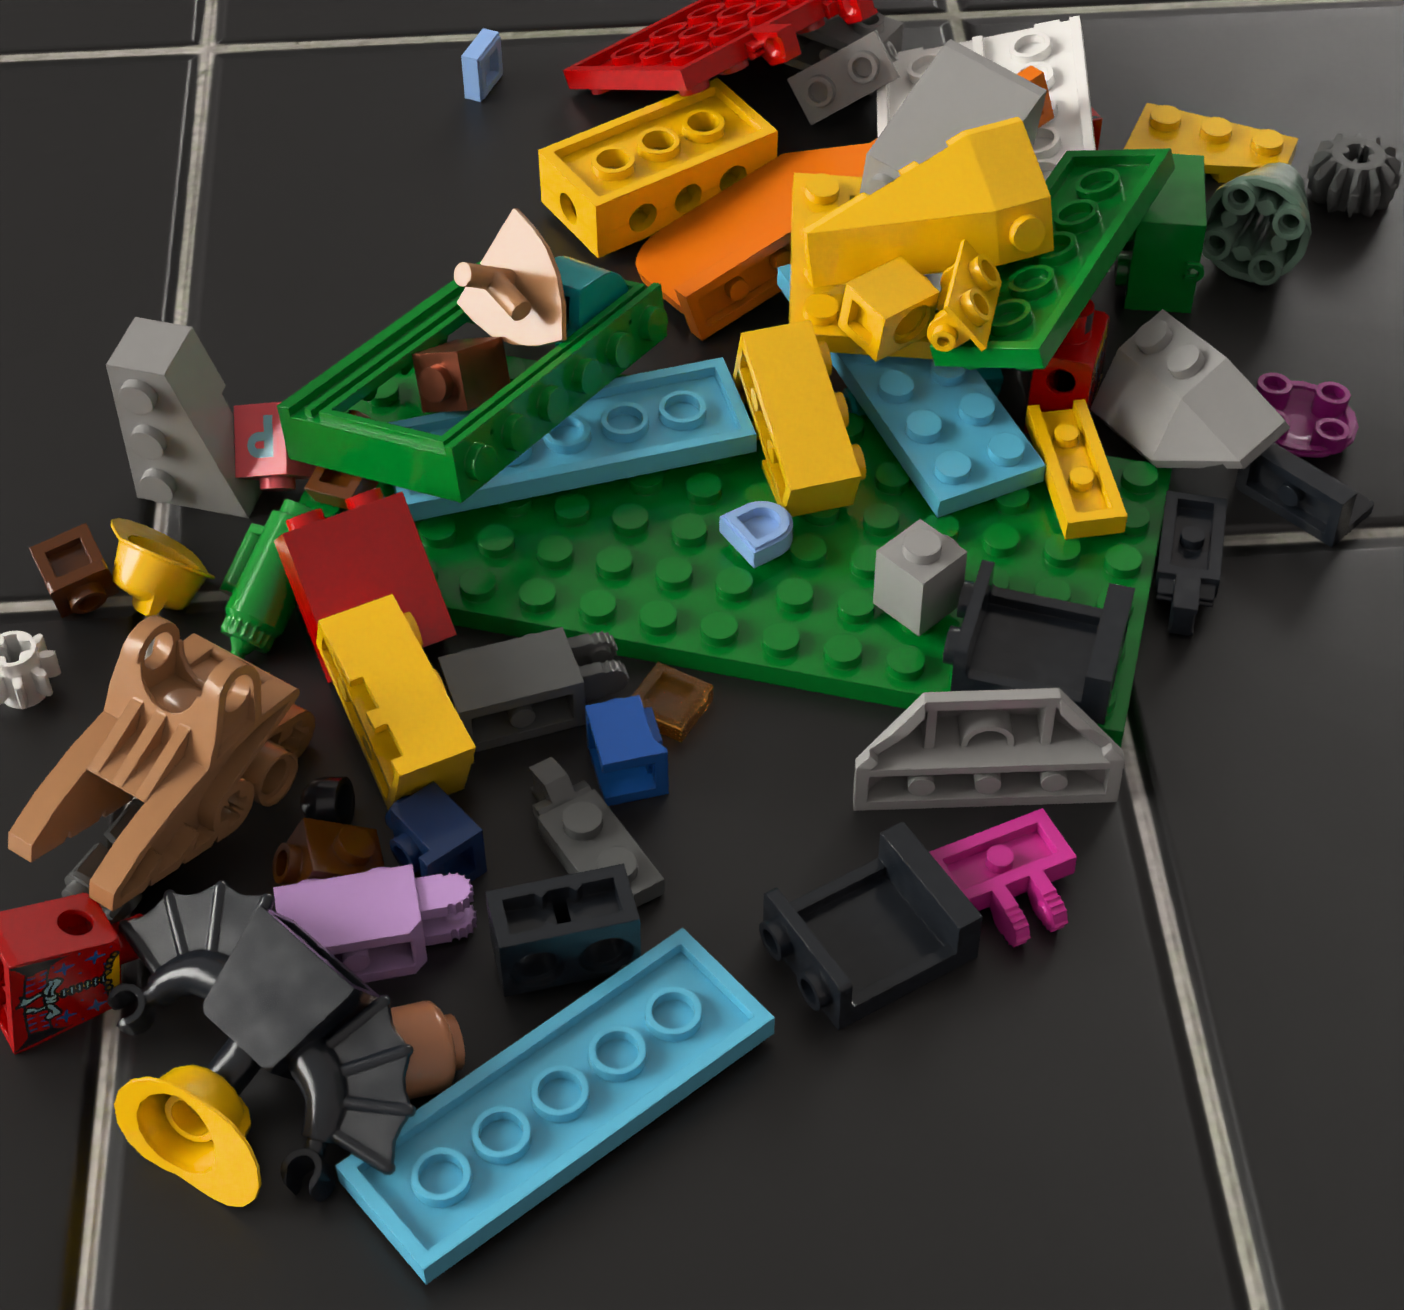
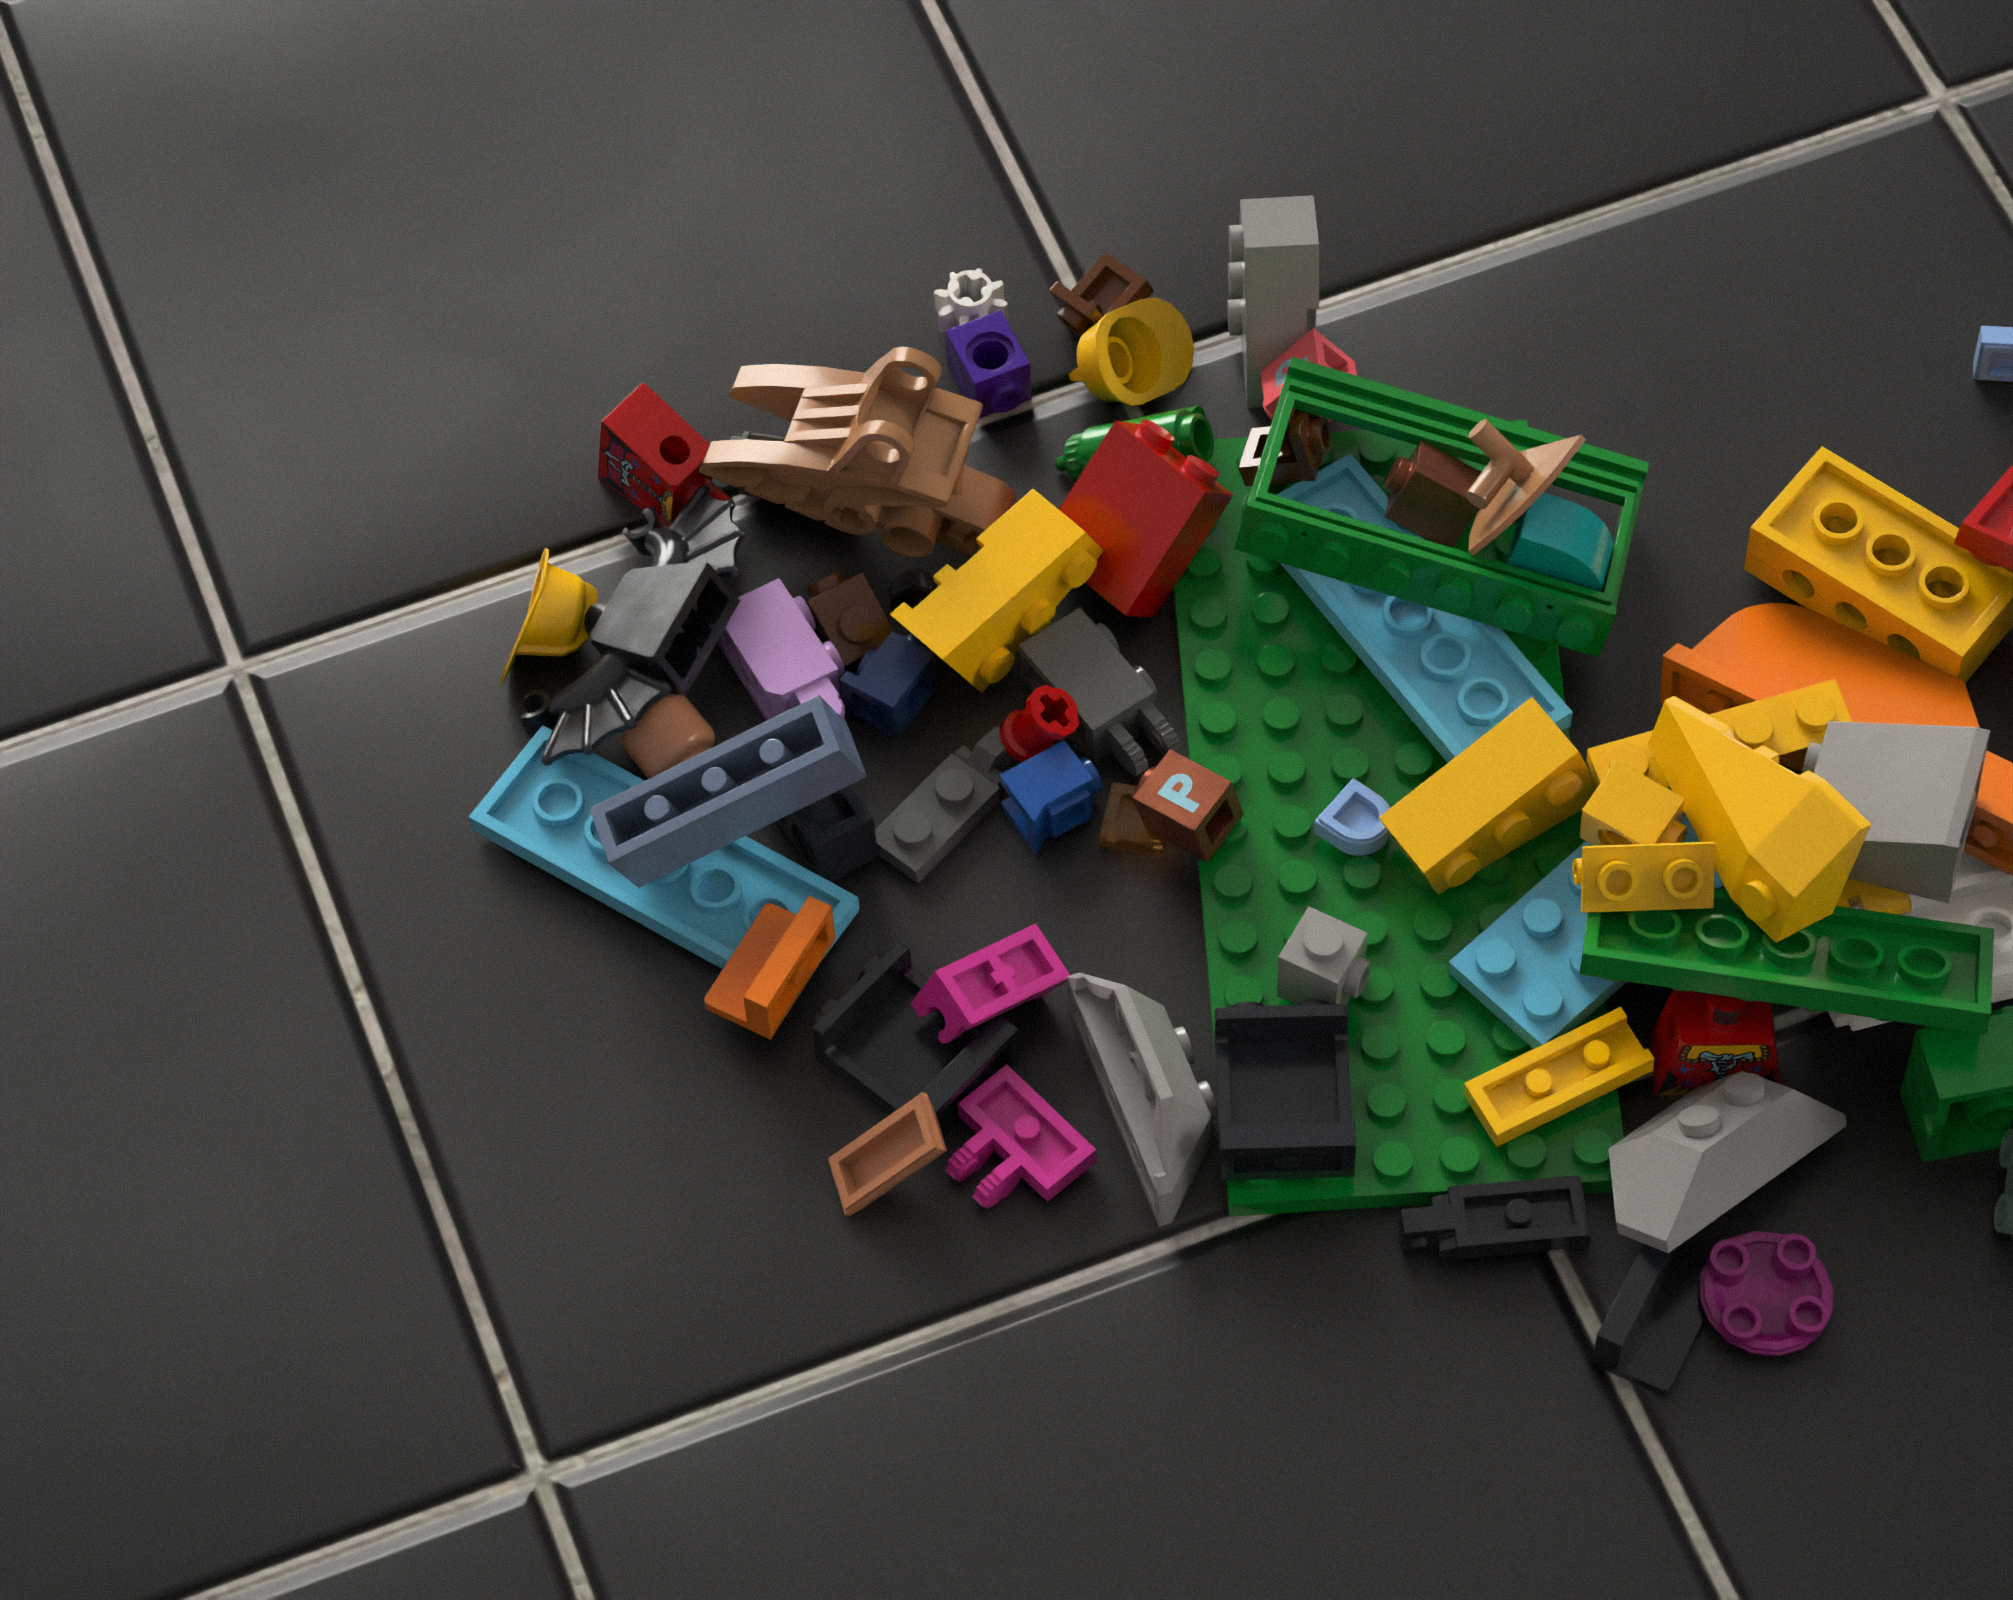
camera: 75 degrees right, 10 degrees up
(83, 669) = (985, 346): none -> dark purple brick
(553, 724) = (1047, 717): none -> red bush
(561, 963) = (728, 792): none -> sand blue brick
(701, 632) = (1187, 805): none -> copper brick
(751, 1009) = (772, 966): none -> orange panel
(839, 835) = (991, 982): none -> dark pink hinge
(1005, 971) = (887, 1154): none -> nougat tile

